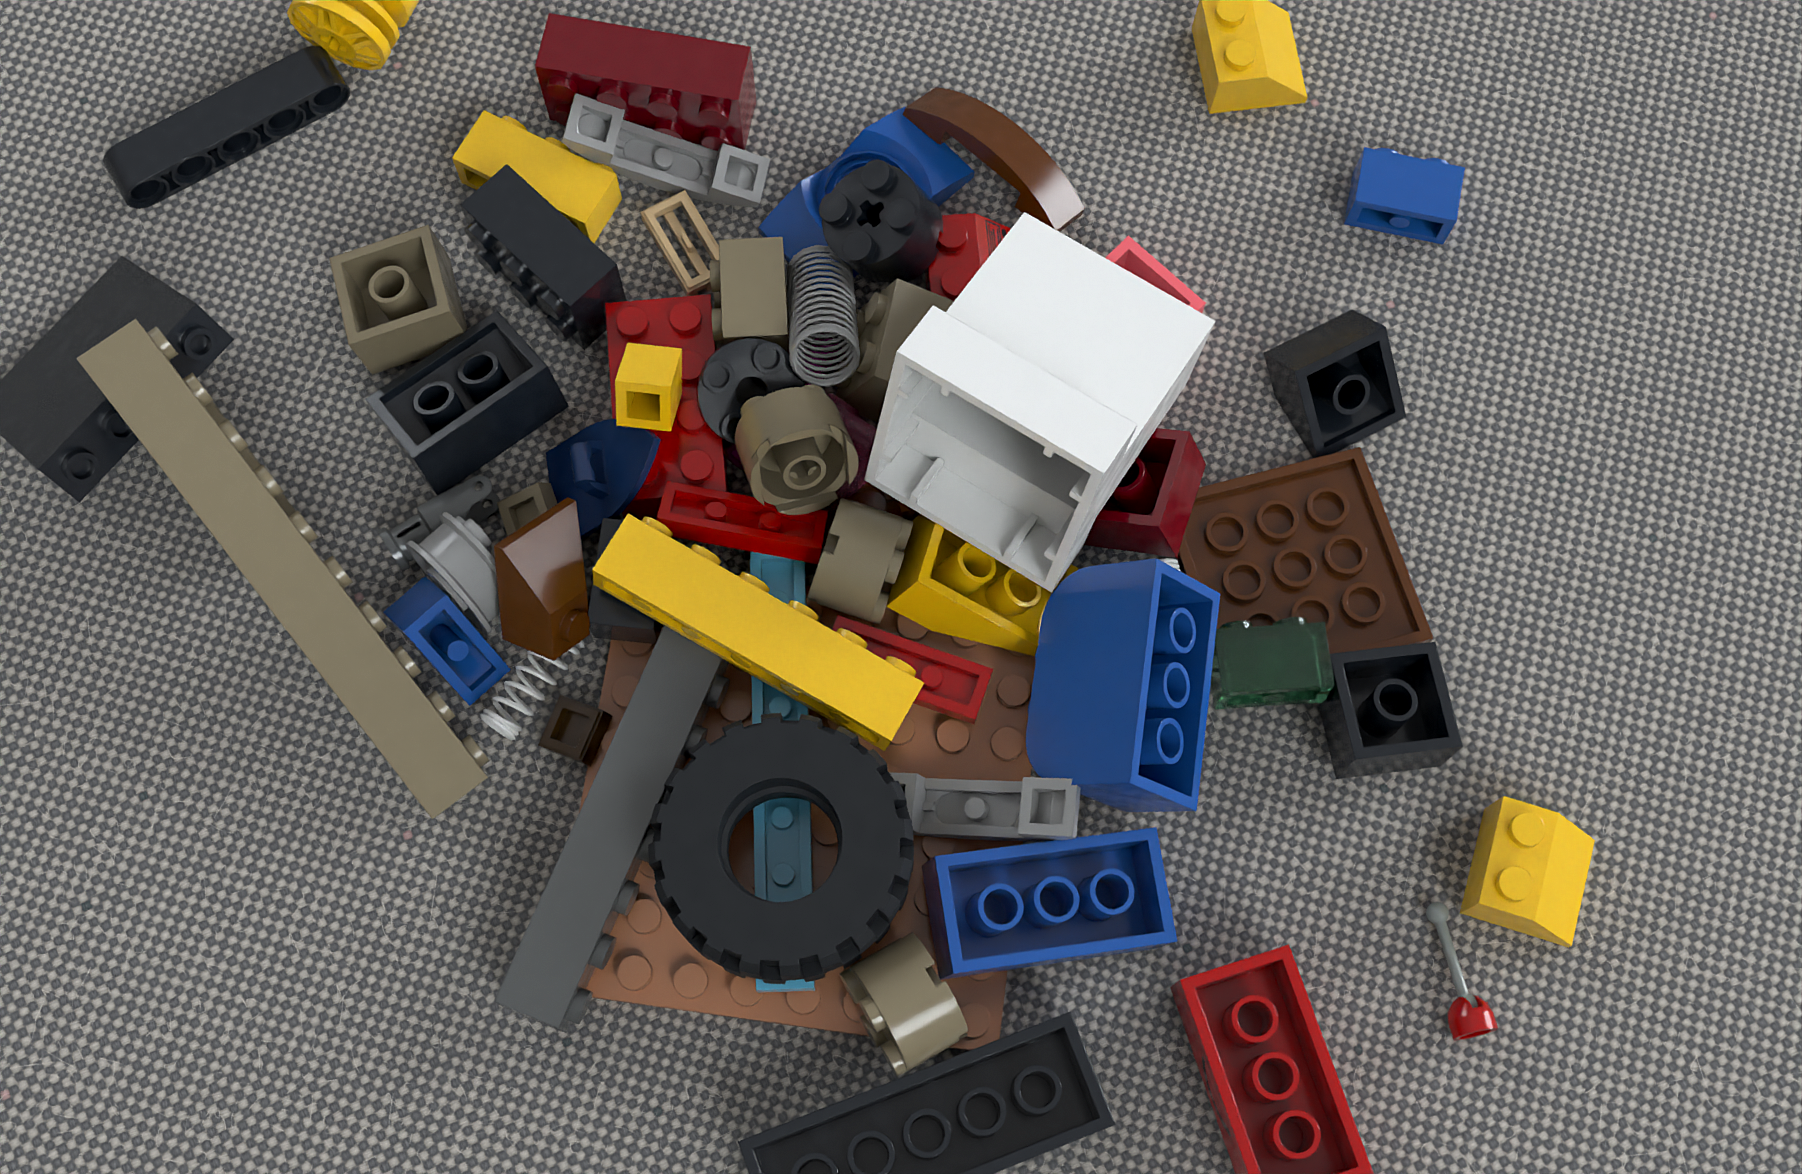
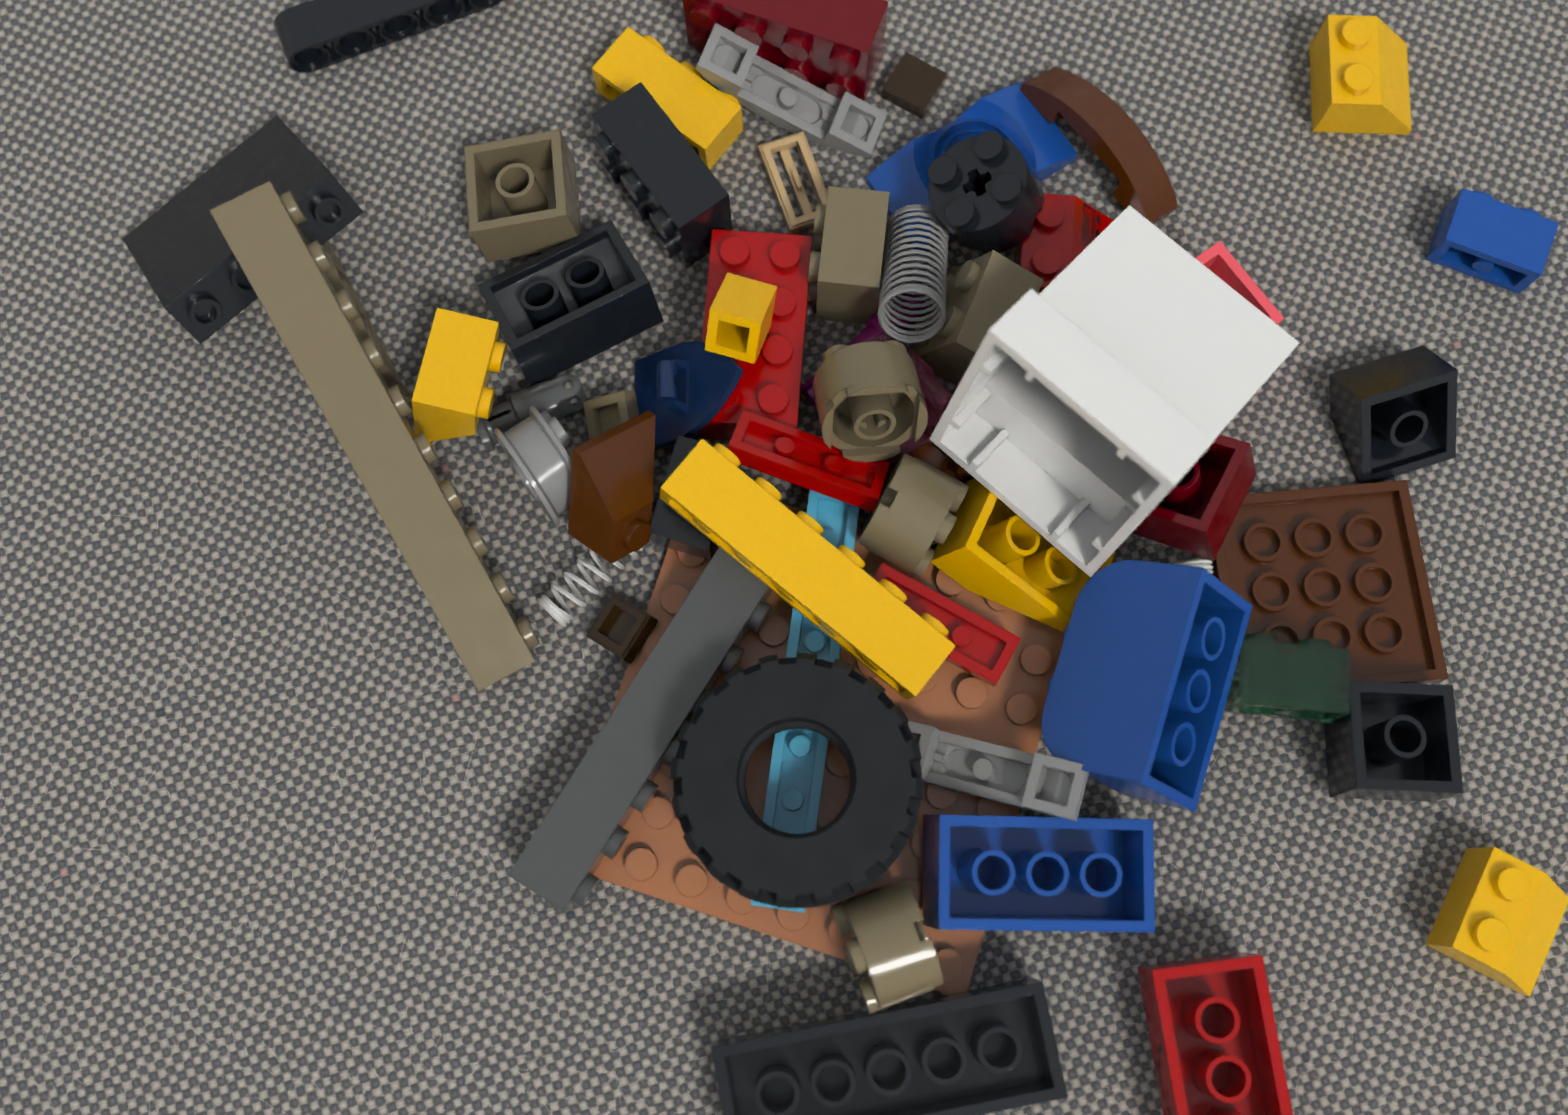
camera: 15 degrees right, 5 degrees up
(357, 494) = (456, 375): none -> yellow slope
(447, 640) = (517, 524): blue slope -> none
(739, 373) = (826, 319): black plate -> none
(793, 126) = (914, 85): none -> dark brown tile
(1468, 1014) = (1418, 1044): hinge -> none

